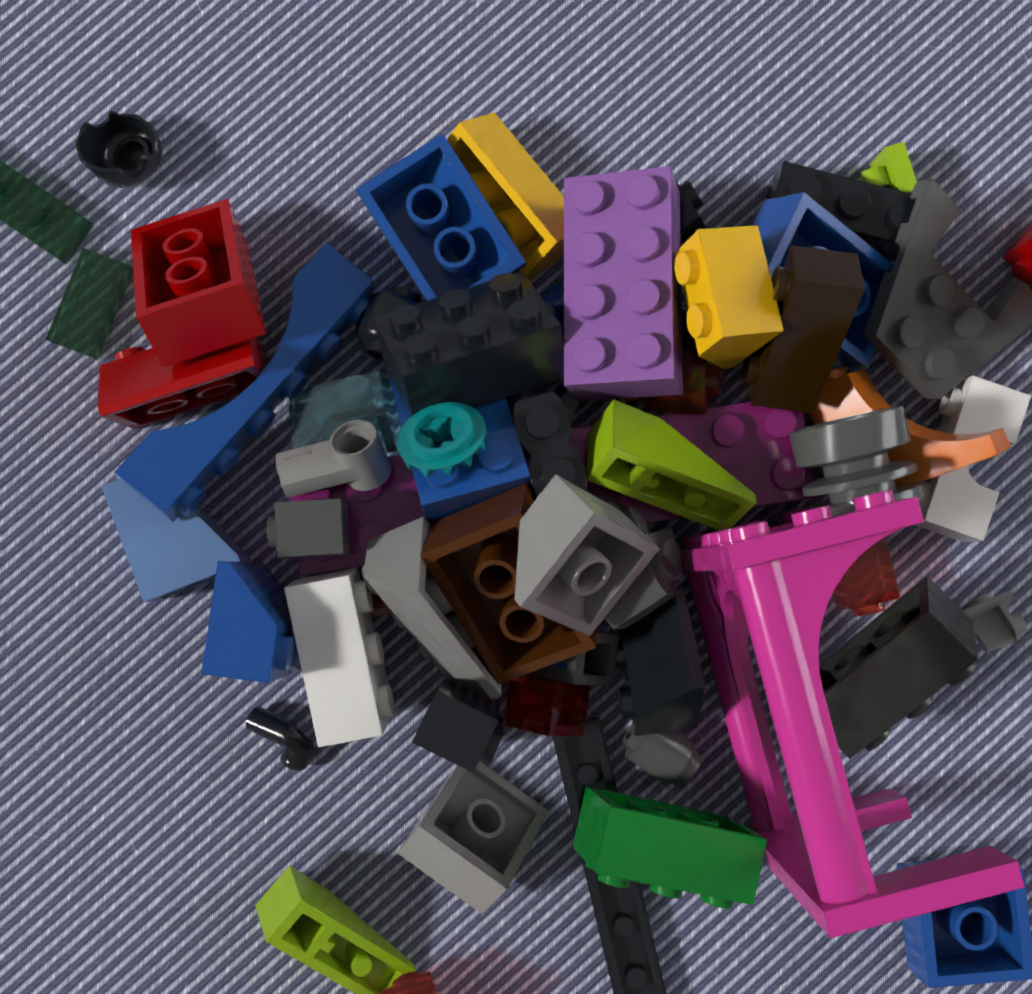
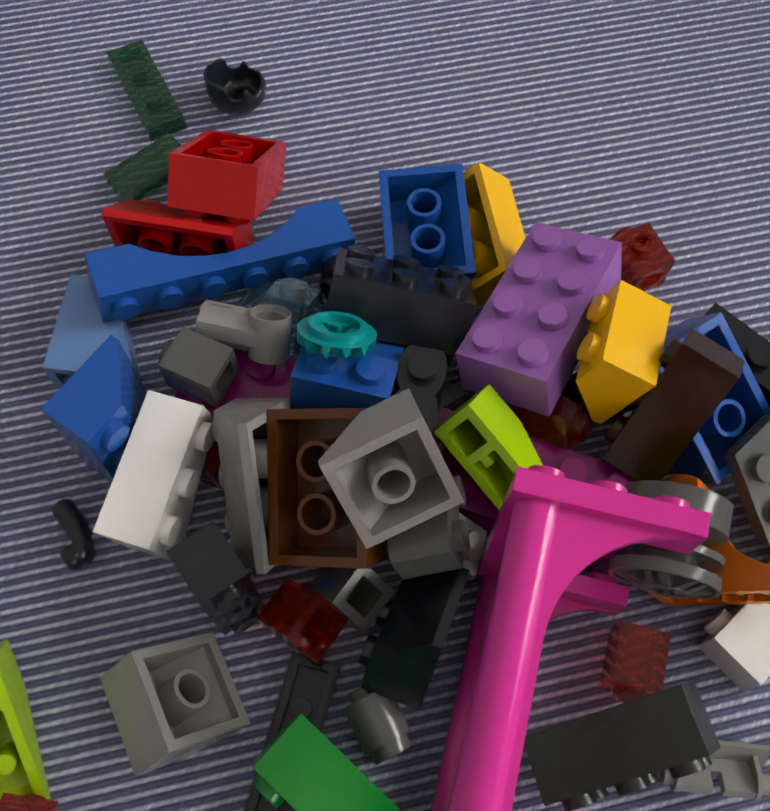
camera: 30 degrees right, 20 degrees down
(675, 137) = (644, 257): none -> clear red brick

